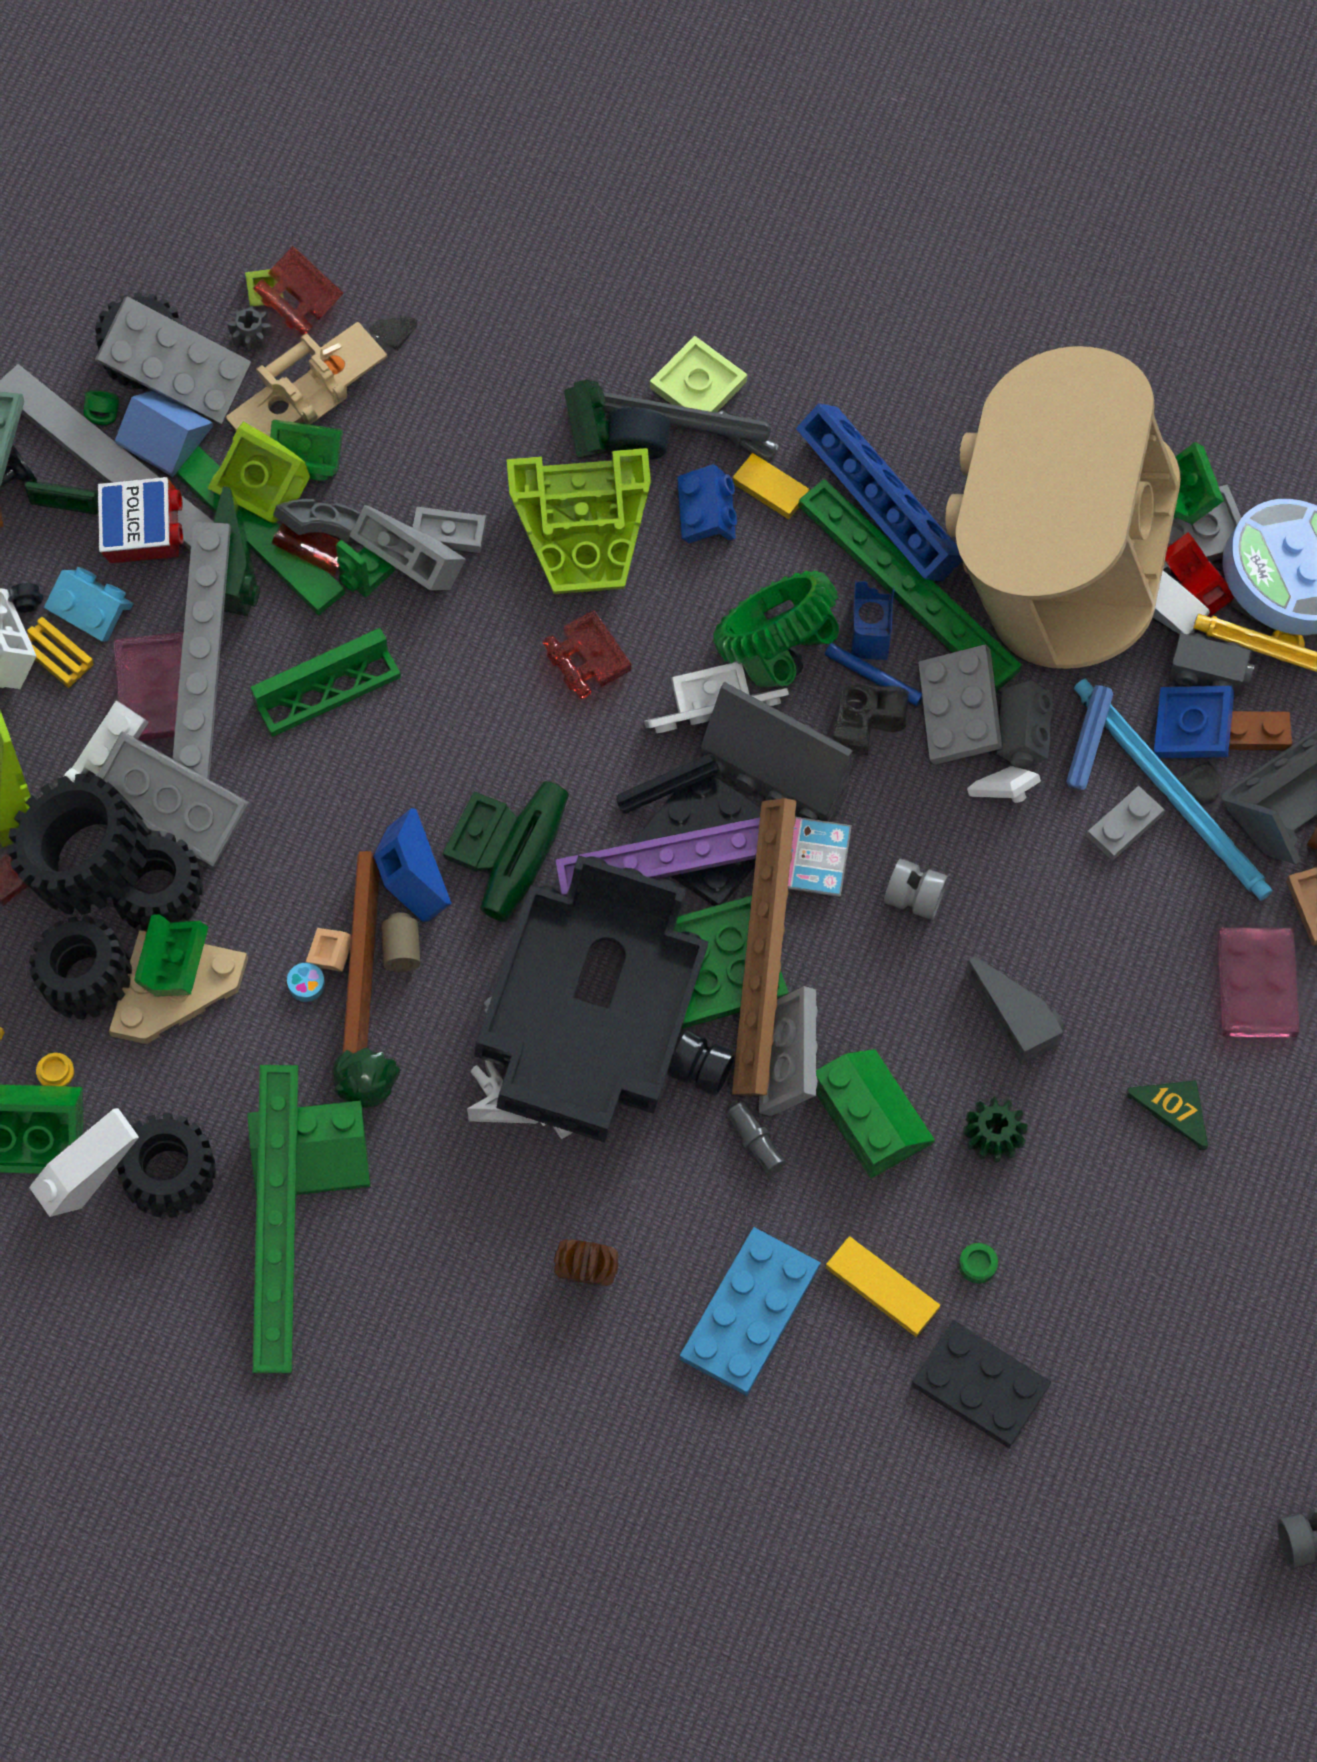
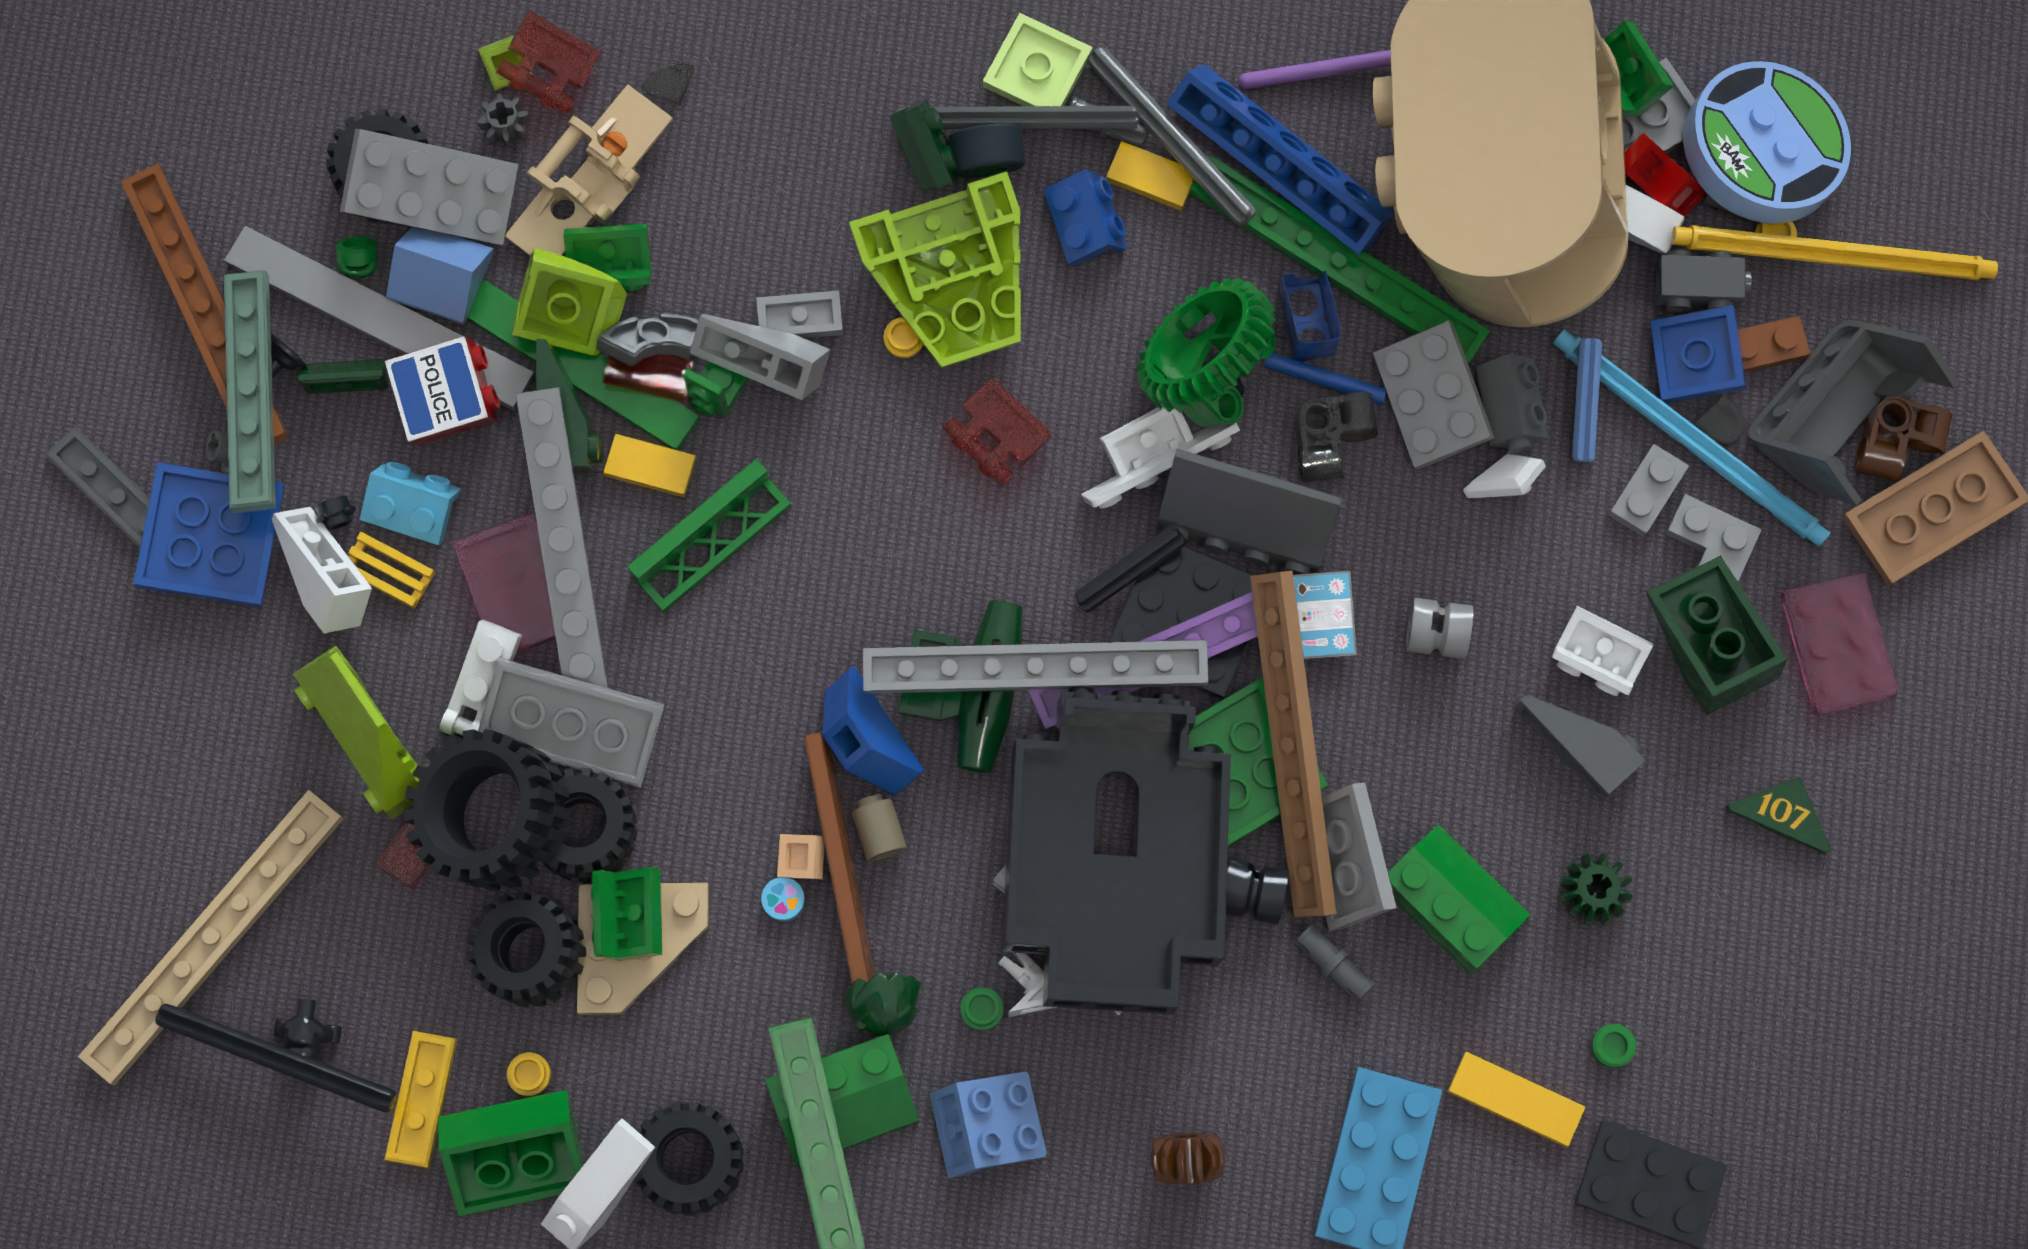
camera: 15 degrees left, 10 degrees up
(293, 619) = (650, 465): none -> yellow tile
(426, 1197) = (987, 1123): none -> medium blue bracket
(447, 1107) = (981, 1009): none -> green plate
(527, 566) = (901, 339): none -> yellow plate
(563, 836) = (1035, 666): none -> light grey plate
(794, 457) = (1172, 137): none -> dark grey axle
(916, 432) = (1315, 69): none -> medium lavender piece
(1050, 939) = (1601, 651): none -> white bracket
(1151, 947) = (1716, 635): none -> dark green slope
(1178, 880) = (1714, 533): none -> light grey plate

